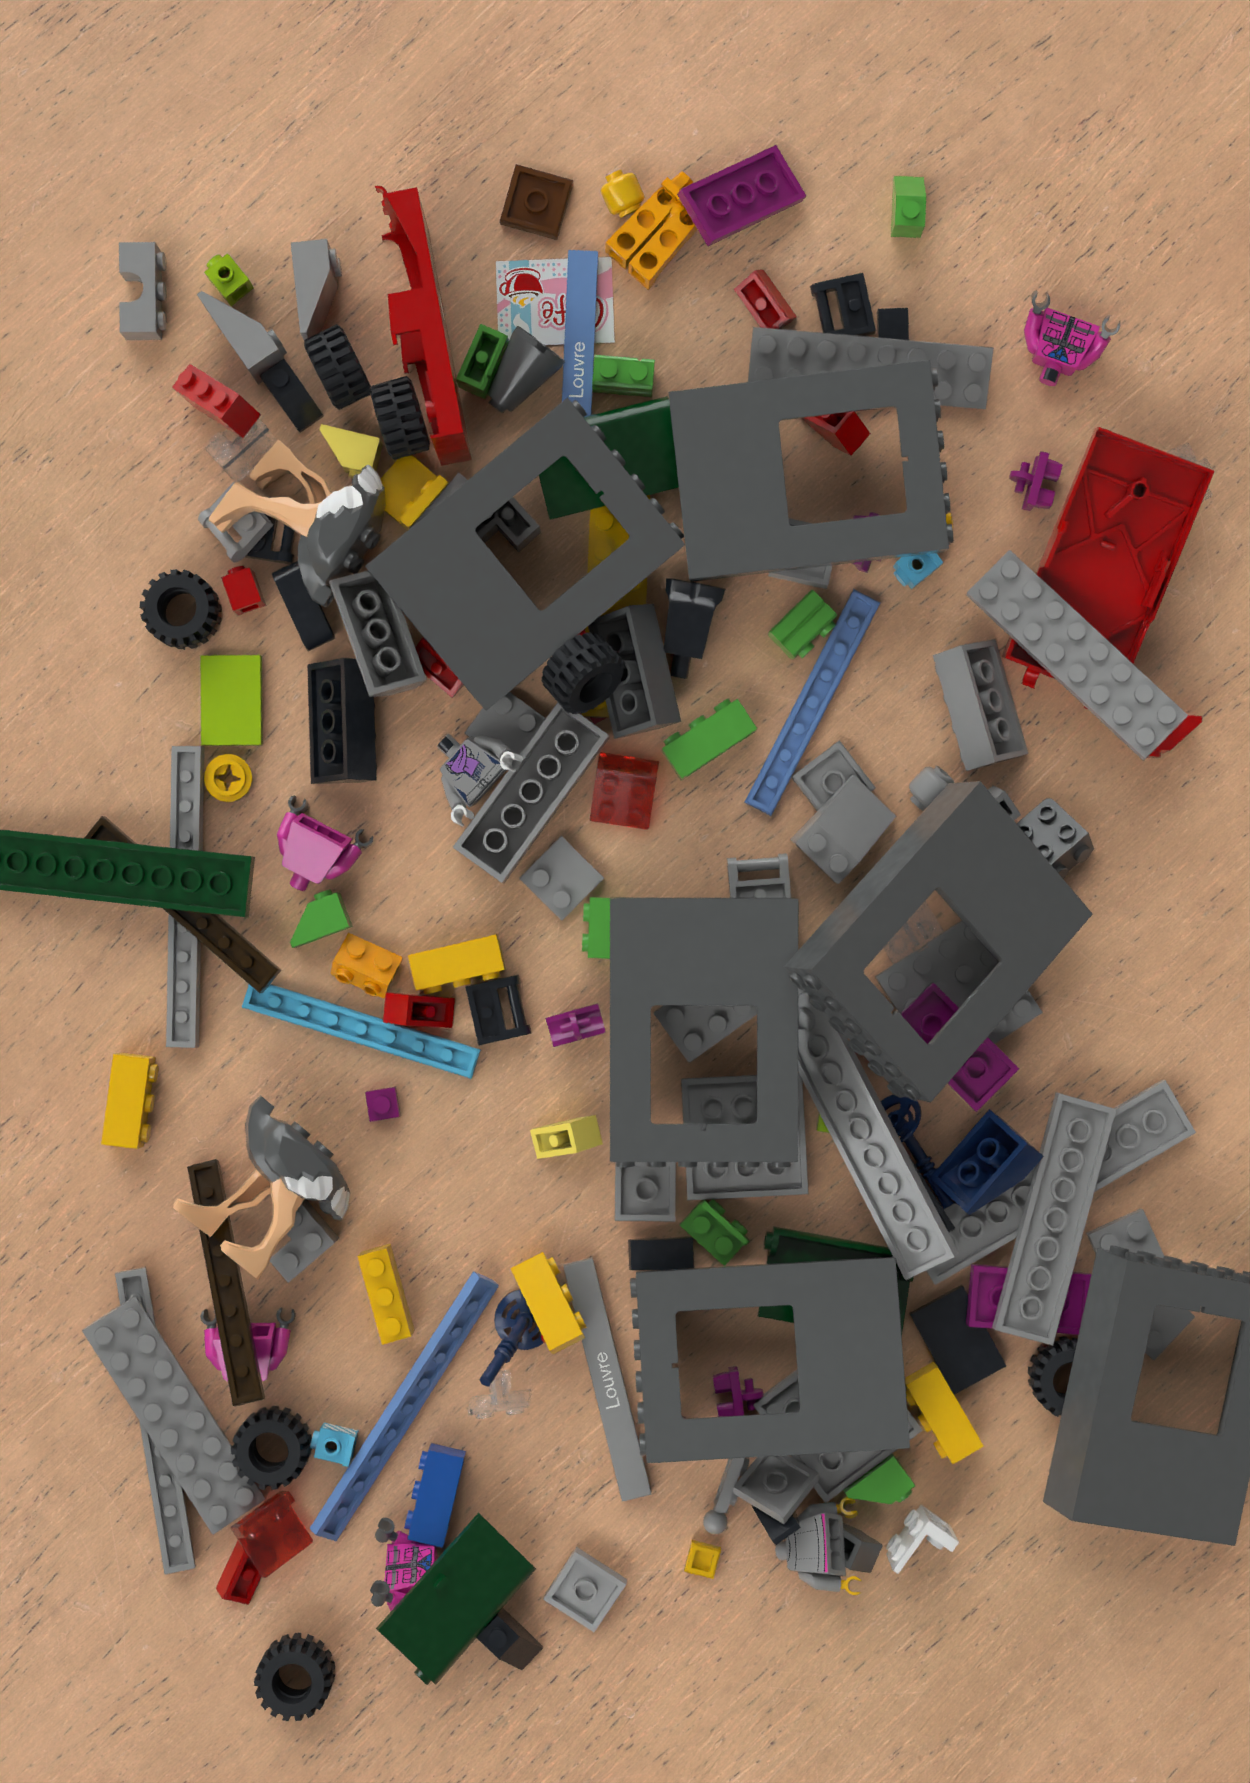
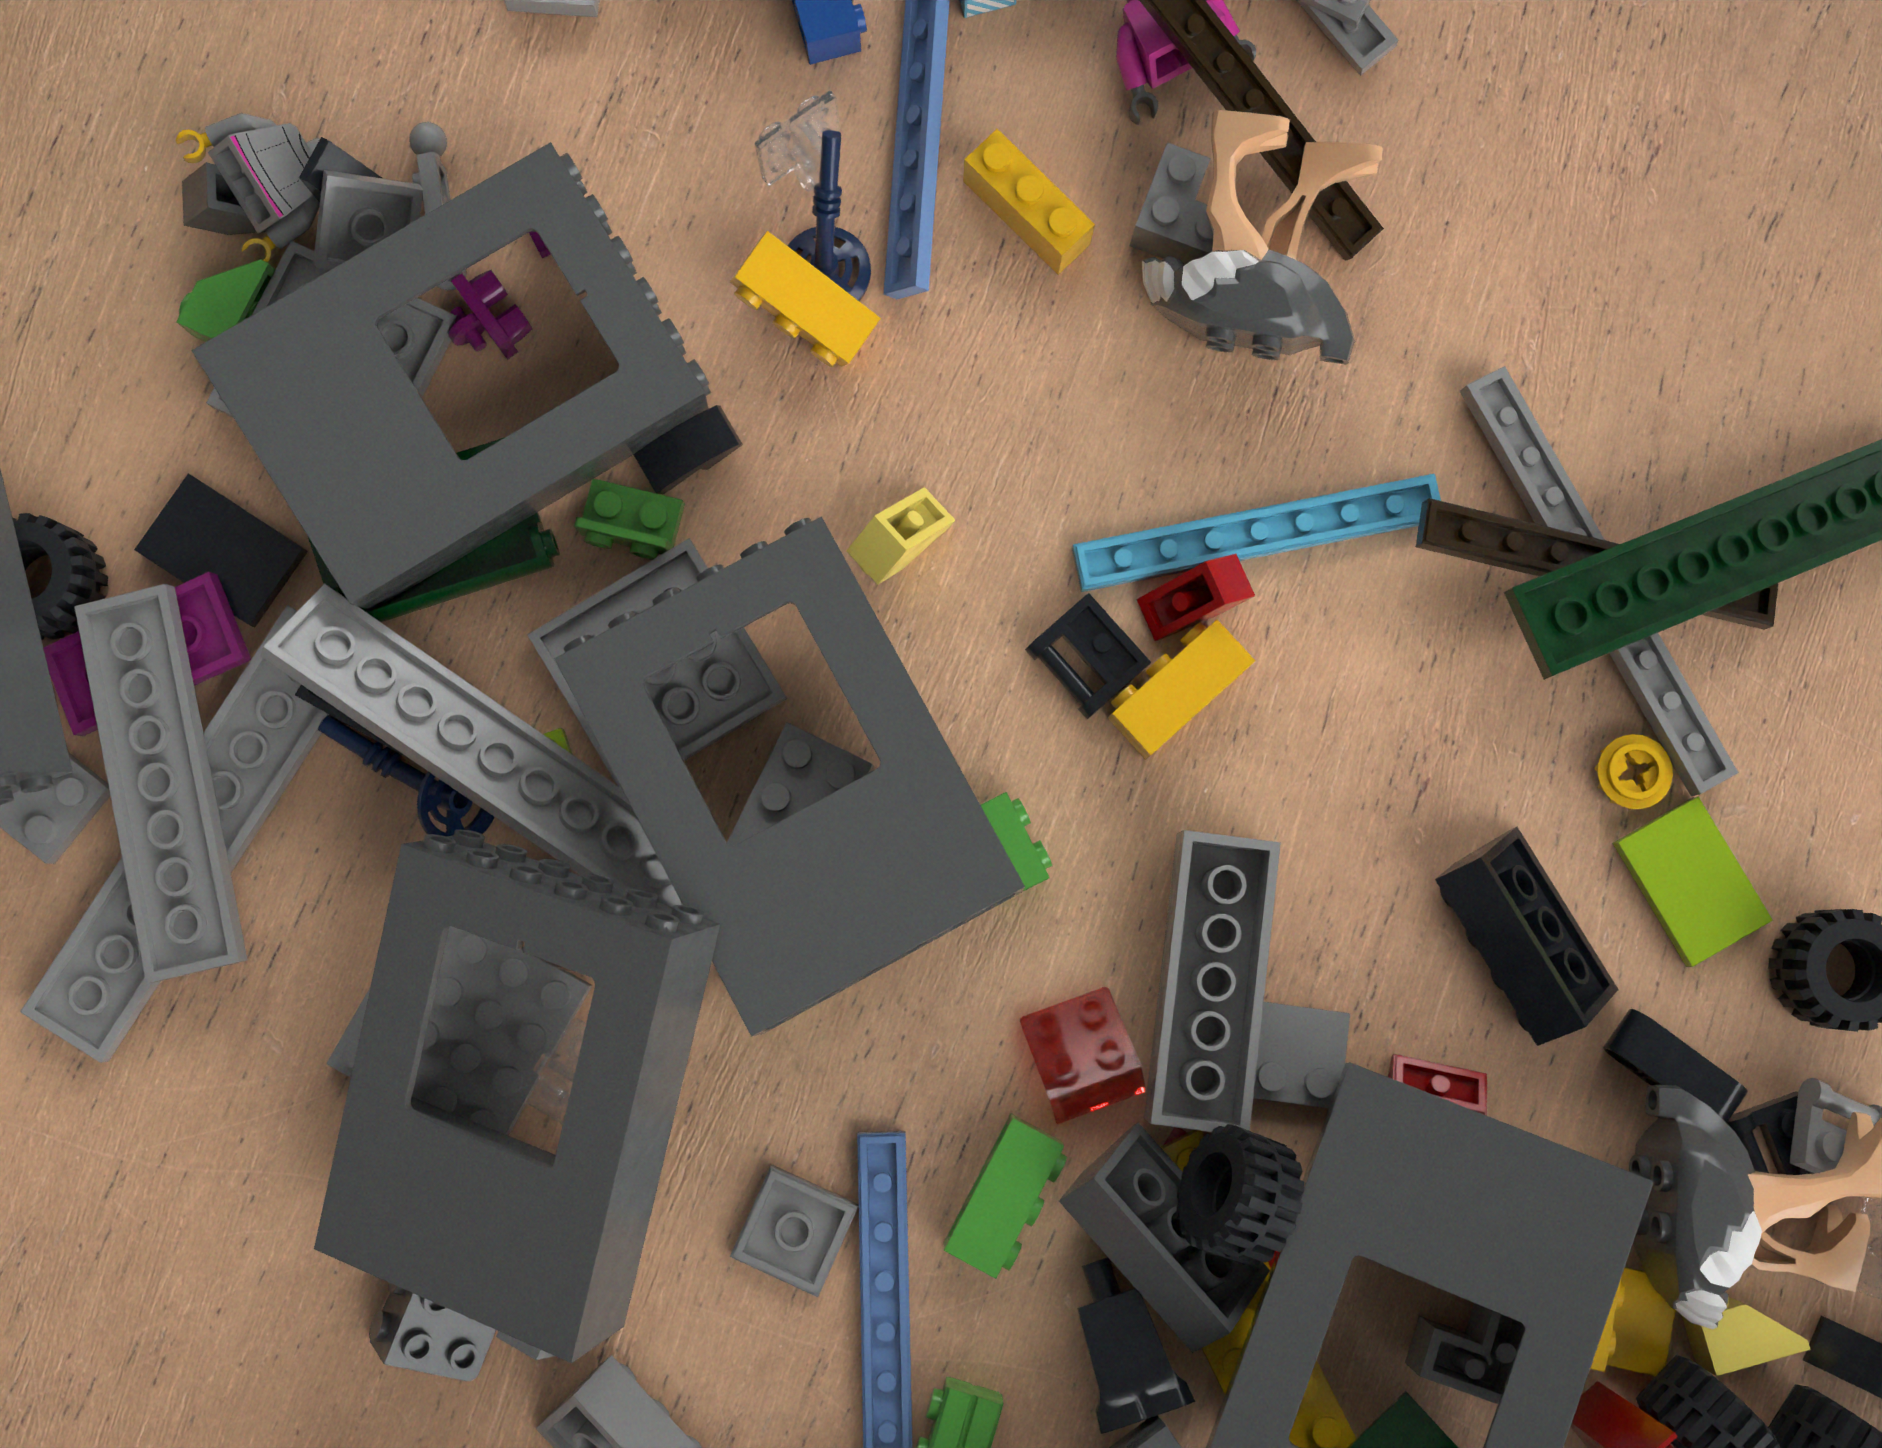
camera: 145 degrees right, 5 degrees down
(129, 1100) = (1511, 271): yellow brick -> none
(243, 590) = (1770, 1044): red brick -> none
(314, 849) = (1464, 737): dark pink torso -> none
(321, 918) = (1397, 648): bright green slope -> none
(365, 965) = (1302, 618): light orange bracket -> none
(377, 635) = (1555, 1083): light grey slope -> none
(382, 1104) = (1172, 448): magenta plate -> none
(472, 770) = (1311, 965): torso -> none
(561, 878) = (1101, 884): light grey plate -> none
(575, 1025) = (971, 691): magenta hips -> none
(608, 1380) = (675, 253): light grey tile -> none
(645, 1193) = (748, 510): light grey plate -> none
(702, 1559) = (421, 88): yellow tile -> none
(762, 887) = (817, 1021): light grey plate -> none
(844, 829) = (743, 1171): light grey slope -> none
(917, 1526) = (144, 268): white bracket -> none
(928, 786) = (653, 1301): light grey head -> none
(941, 1413) = (189, 438): yellow brick -> none
(984, 1070) = (473, 972): magenta plate -> none
(986, 1163) = (294, 805): dark blue slope -> none

